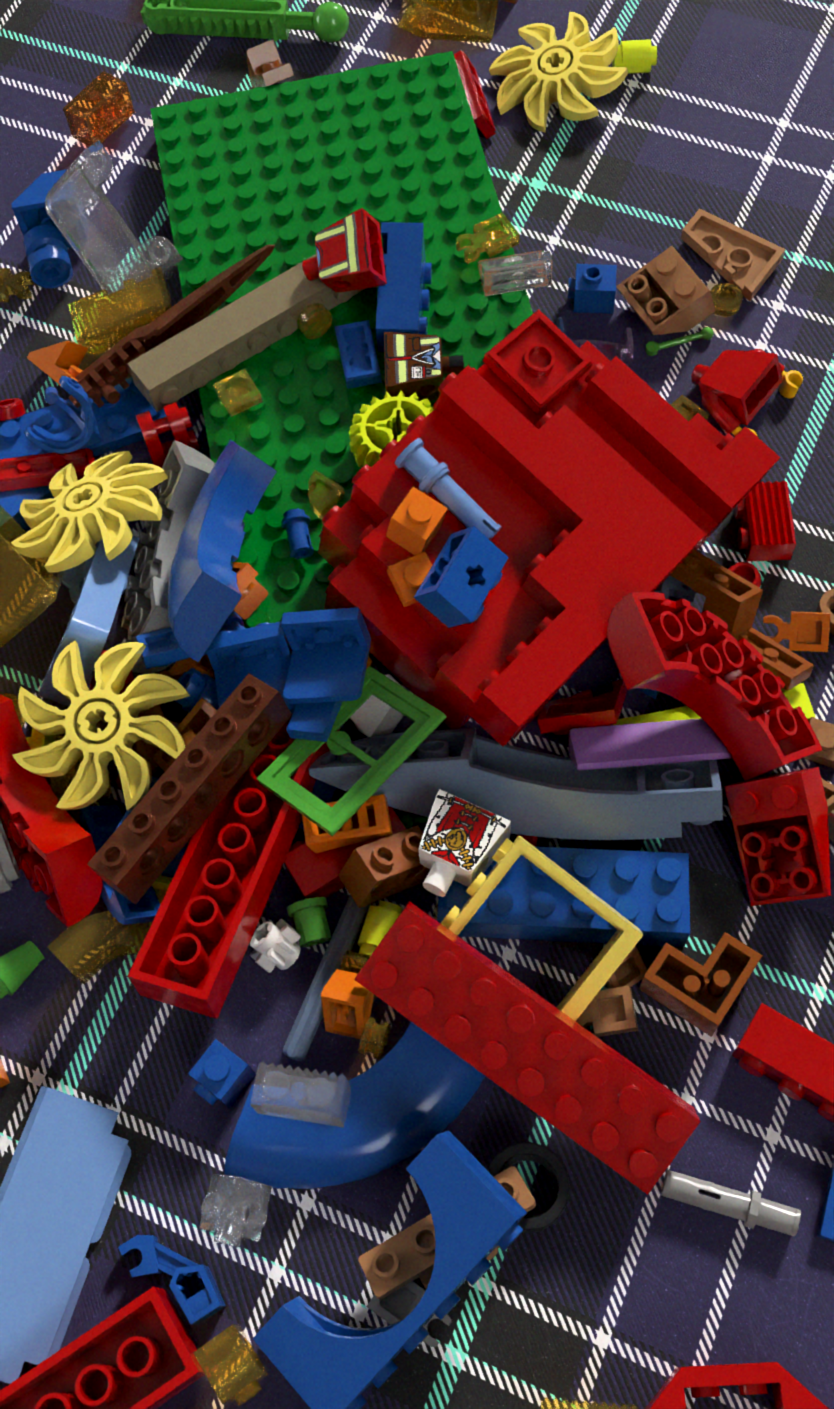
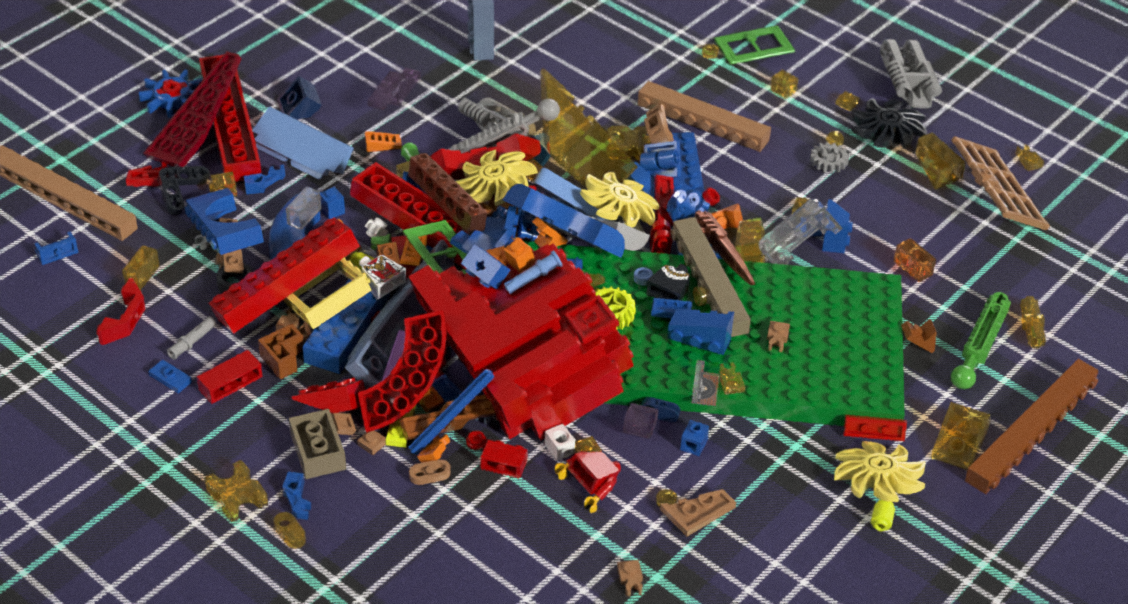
camera: 100 degrees right, 20 degrees down
(234, 1209) = (276, 194): clear brick -> none
(238, 392) = (665, 258): clear yellow plate -> none
(285, 420) = (641, 275): none -> medium blue tile
(300, 366) = (669, 283): none -> black torso
(346, 204) = (777, 334): none -> medium nougat plate
(348, 254) = (719, 297): red torso -> none
(417, 364) = (650, 325): torso -> none
(652, 347) = (645, 457): bright green hinge -> none
(667, 294) = (673, 465): medium nougat slope -> none
(769, 566) = (450, 412): none -> blue axle

